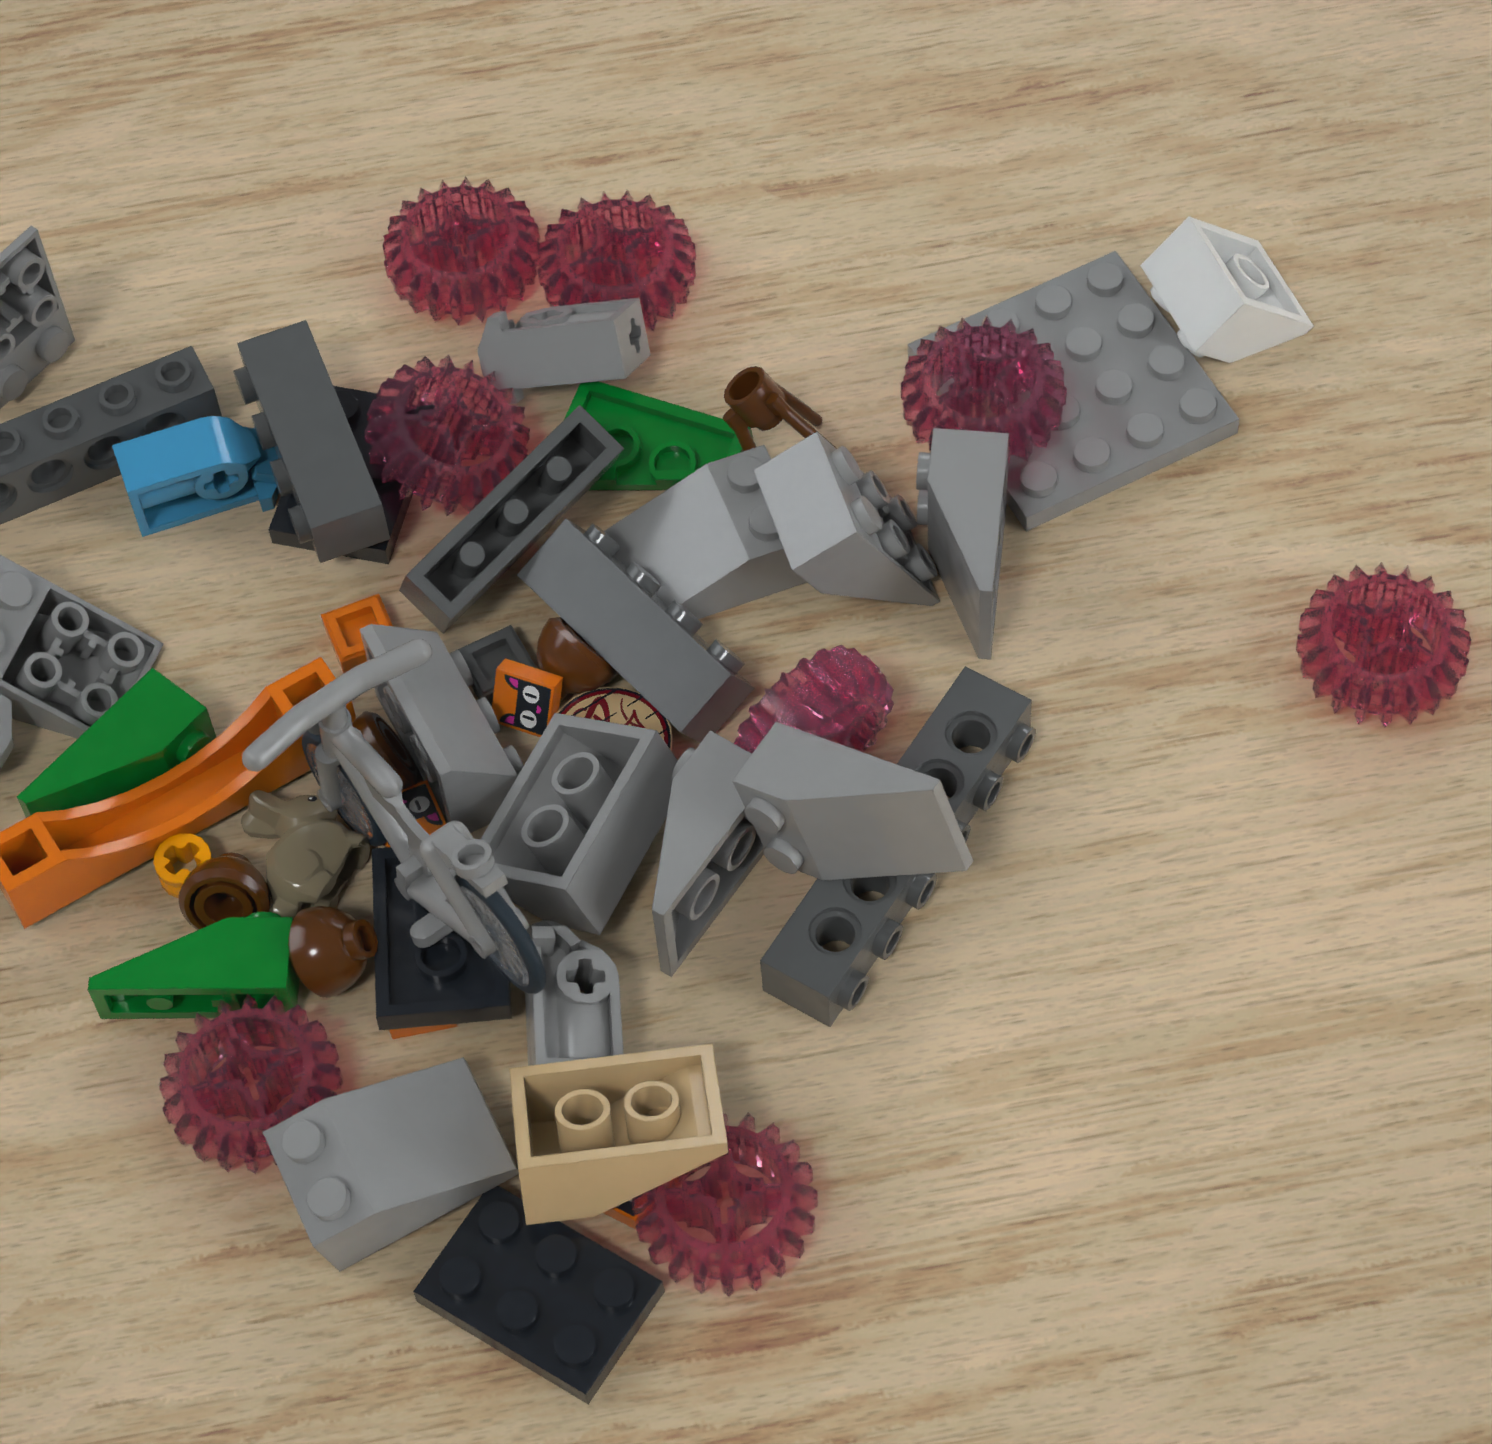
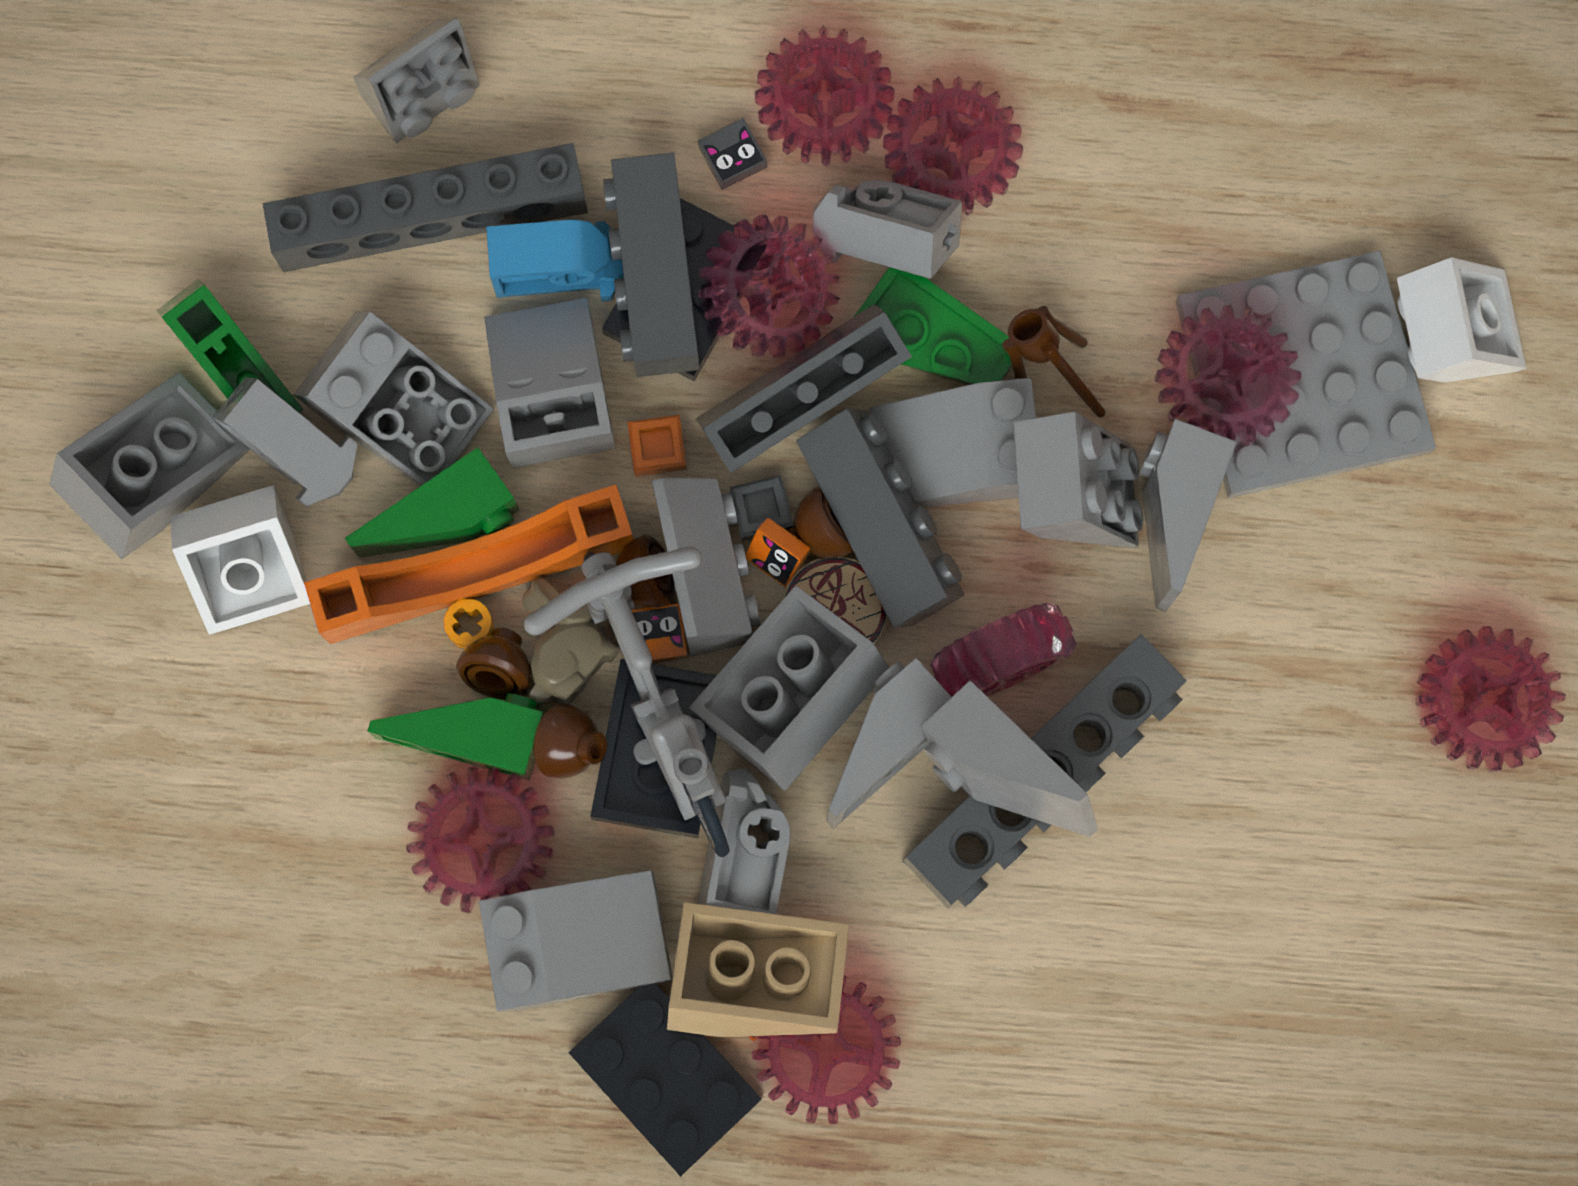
camera: 10 degrees right, 20 degrees up
(224, 599) = (548, 383): none -> light grey slope
(374, 333) = (732, 153): none -> tile

